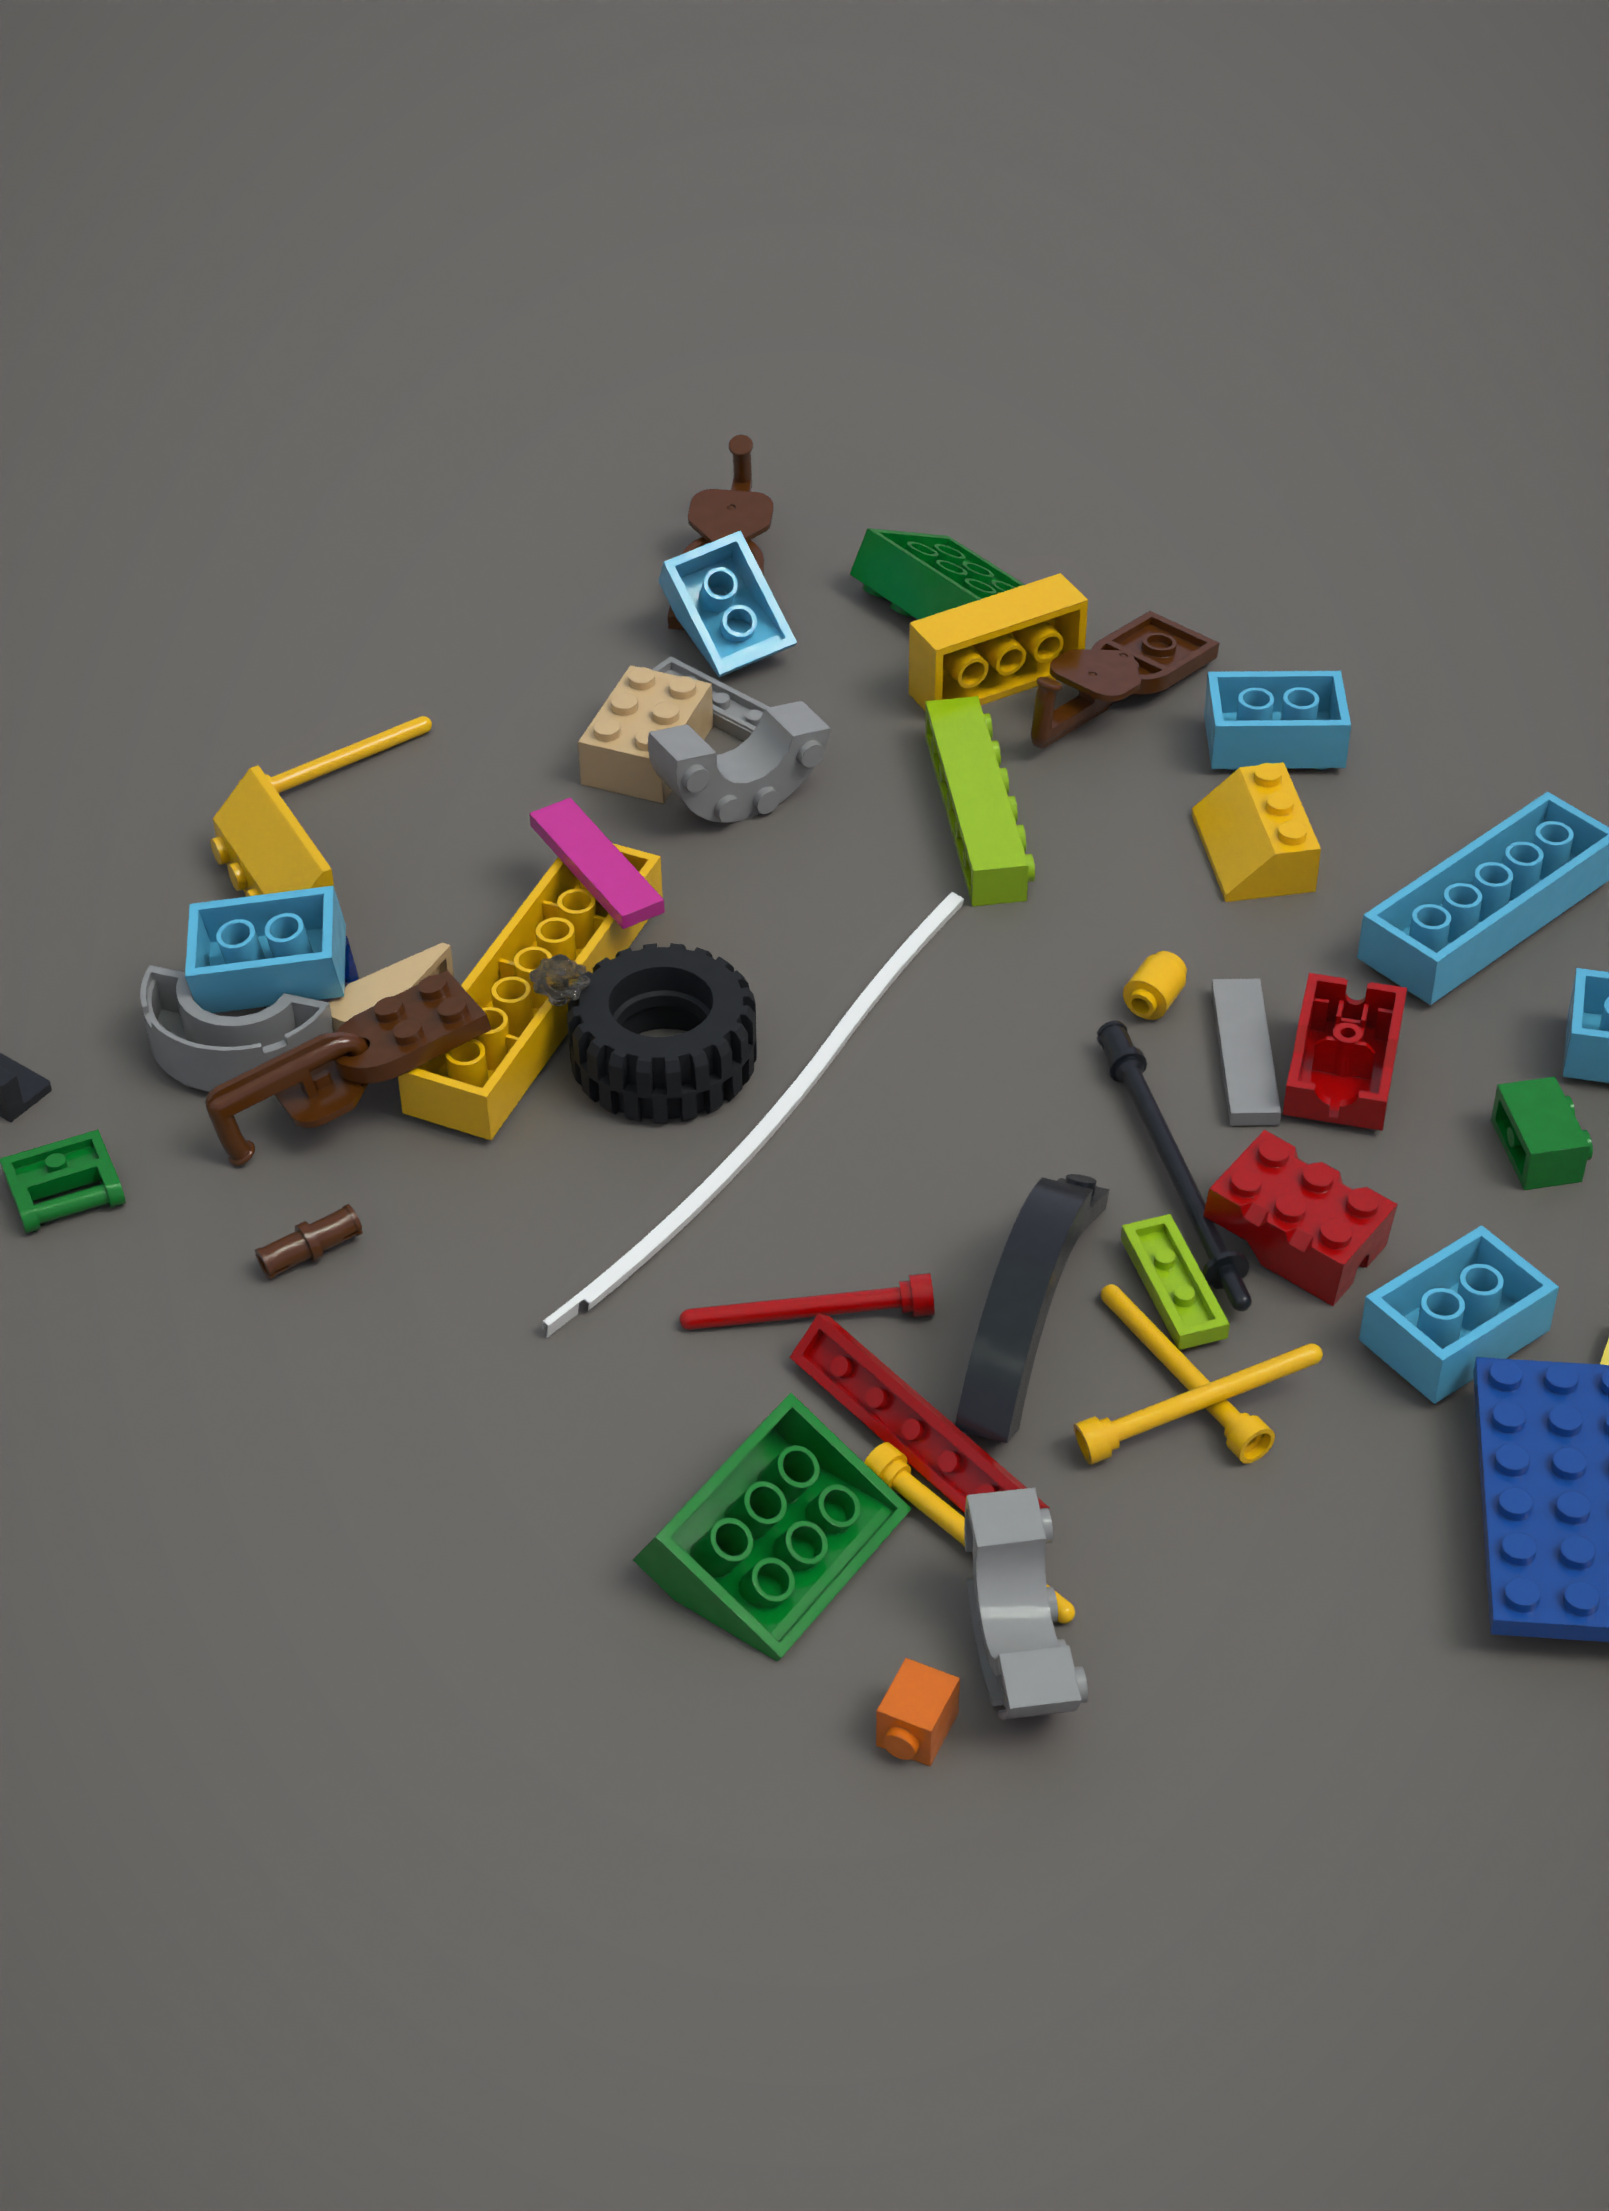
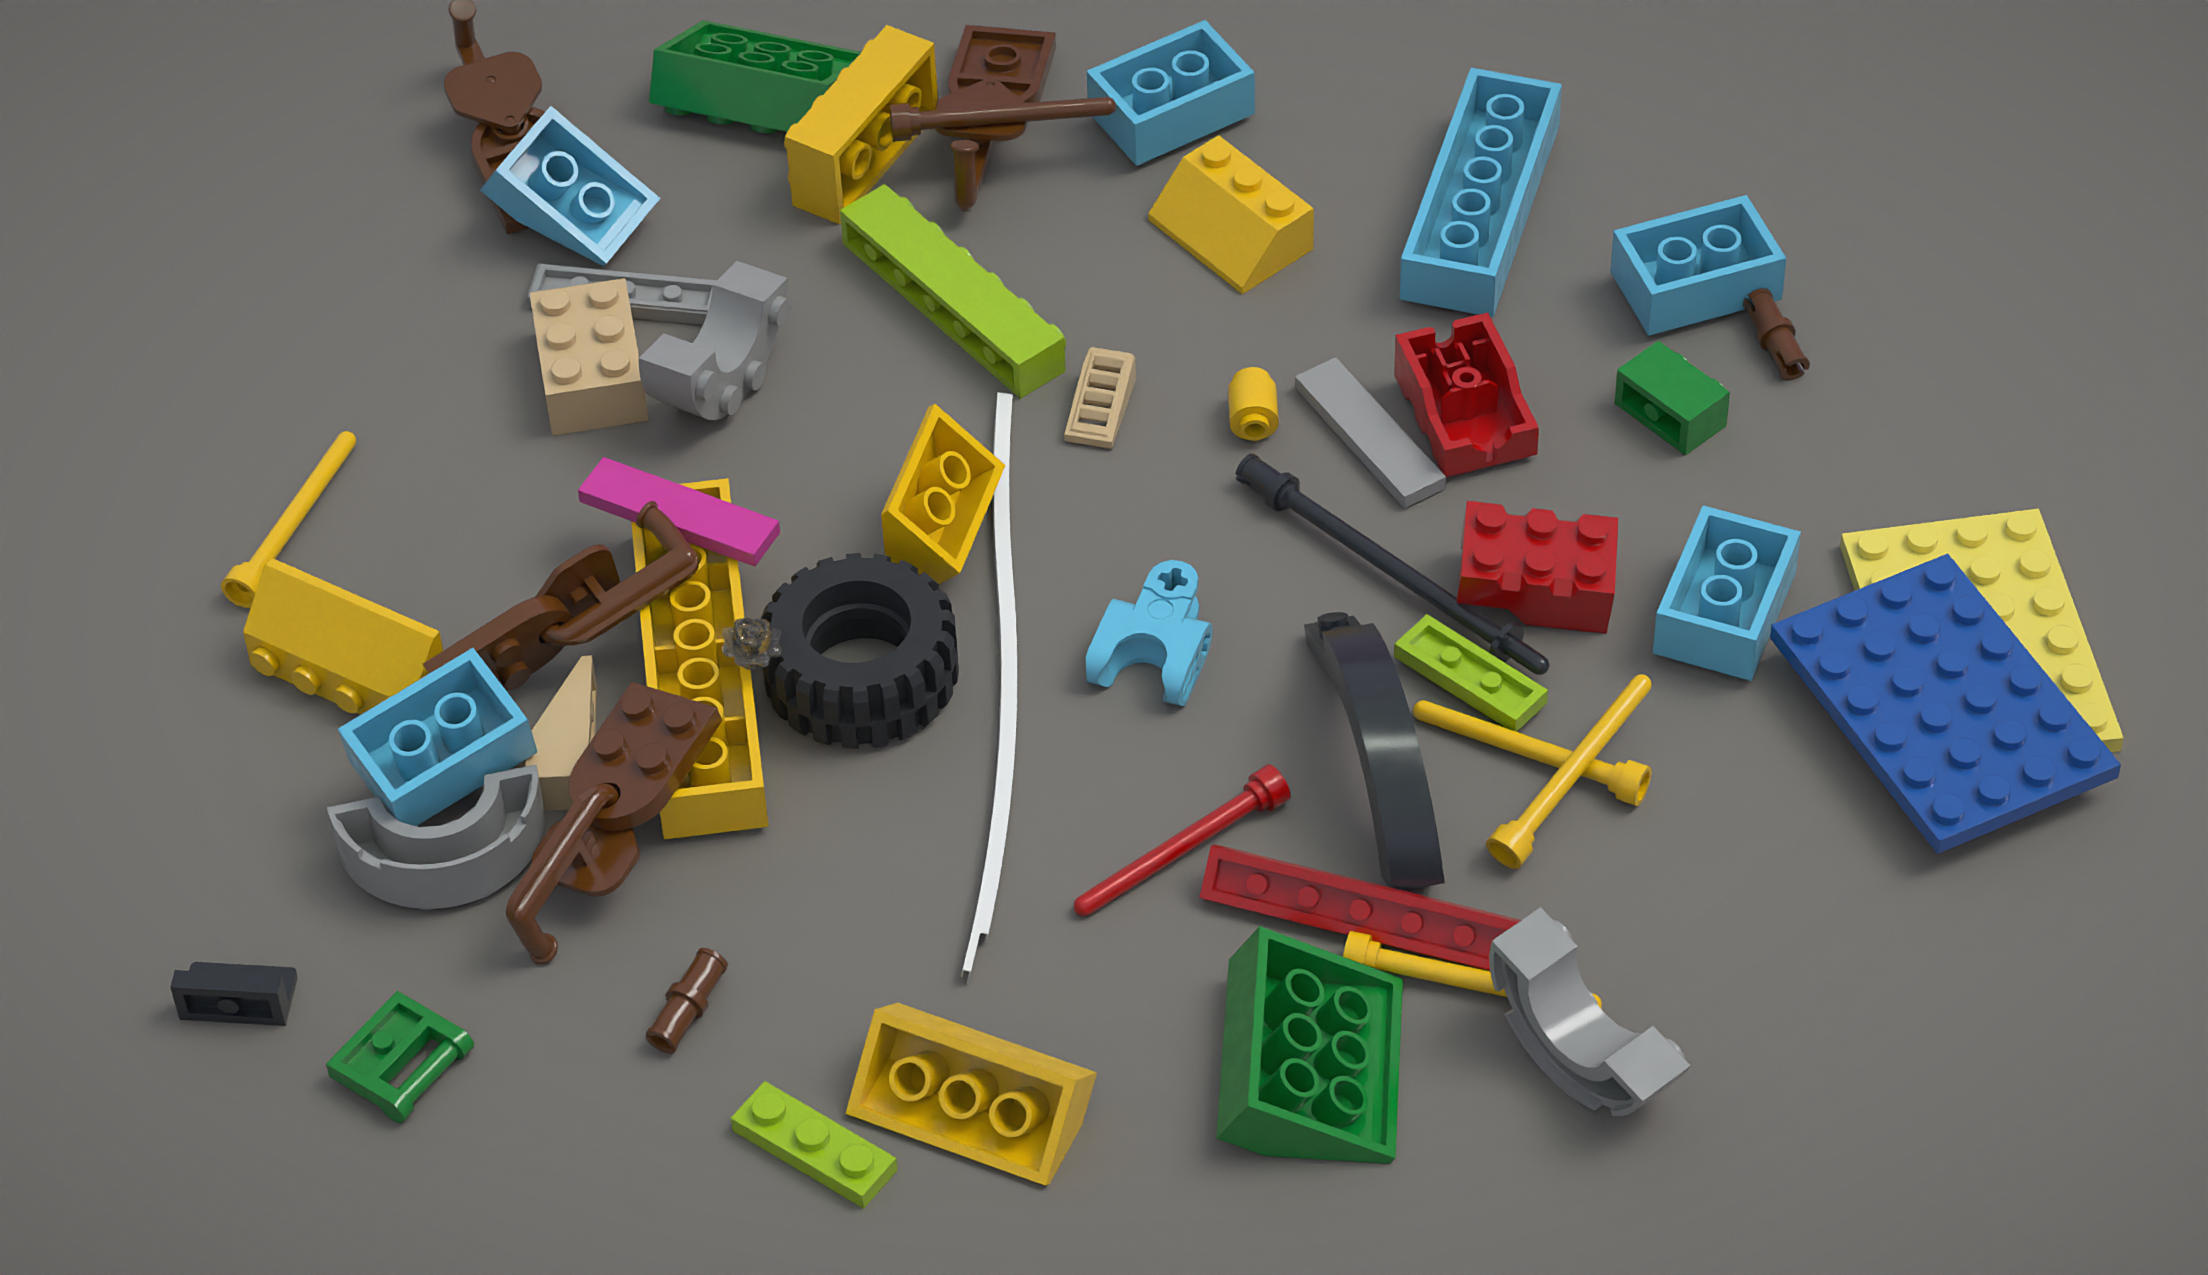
camera: 30 degrees left, 5 degrees up
(313, 1404) = (814, 1144): none -> lime plate
(456, 895) = (576, 605): none -> reddish brown plate
(465, 1420) = (969, 1092): none -> yellow slope
(814, 940) = (939, 497): none -> yellow slope
(917, 1712) = (1547, 1145): orange brick -> none
(930, 1127) = (1155, 631): none -> medium azure piece
(1025, 652) = (910, 121): none -> reddish brown piece
(1046, 906) = (1104, 370): none -> tan slope

